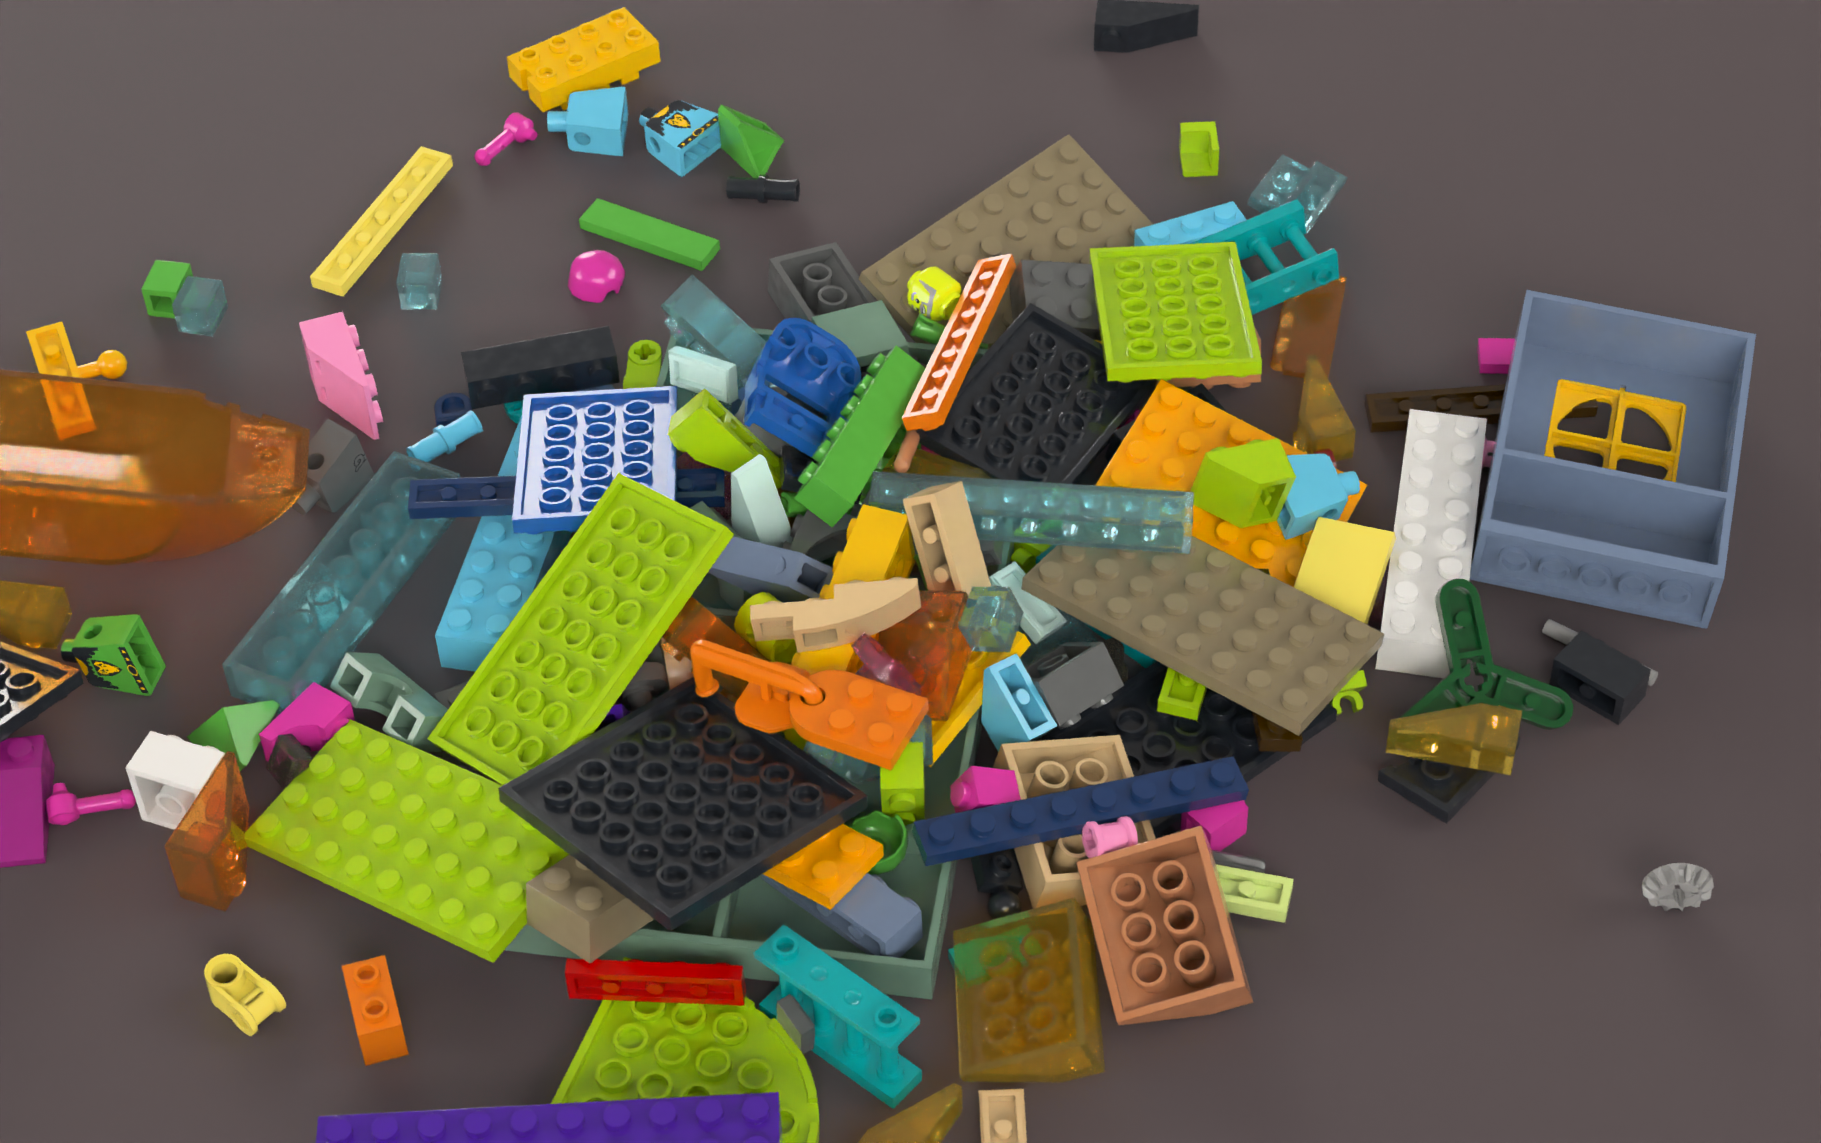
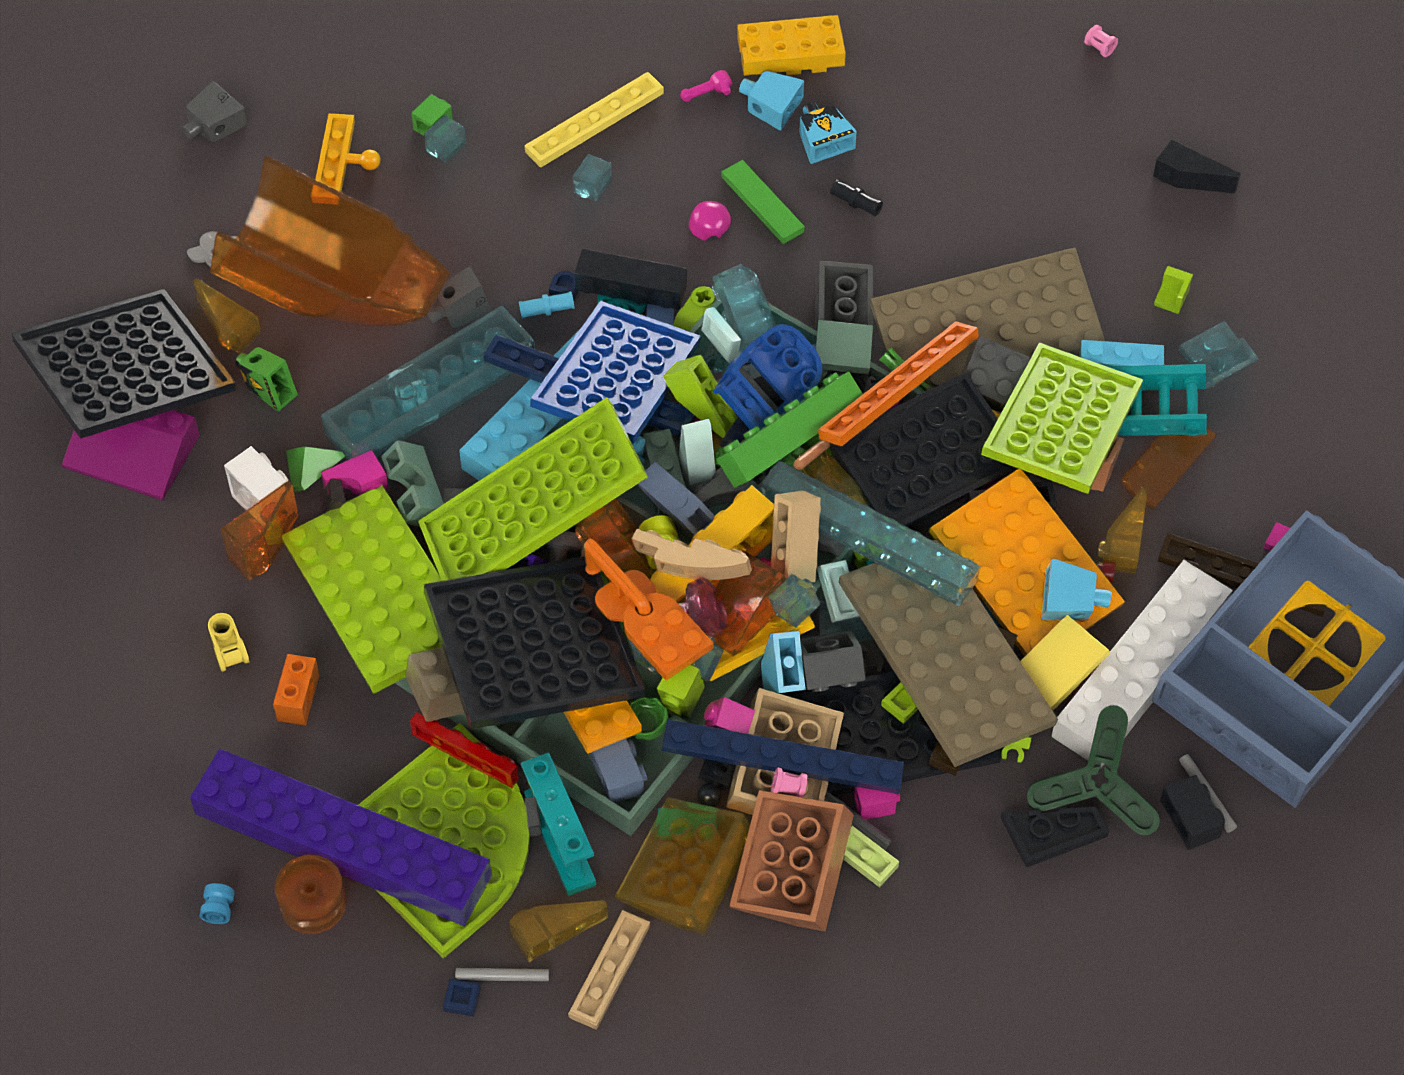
camera: 25 degrees right, 10 degrees up
(66, 808) = (189, 469): dark pink piece -> none
(340, 371) = (503, 226): bright pink slope -> none
(748, 140) = (869, 155): bright green slope -> none
(933, 293) = (908, 335): neon yellow head -> none
(1244, 482) = (1024, 571): lime slope -> none
(1463, 736) = (1067, 815): clear yellow slope -> none
(1692, 879) = (1142, 983): light grey gear -> none

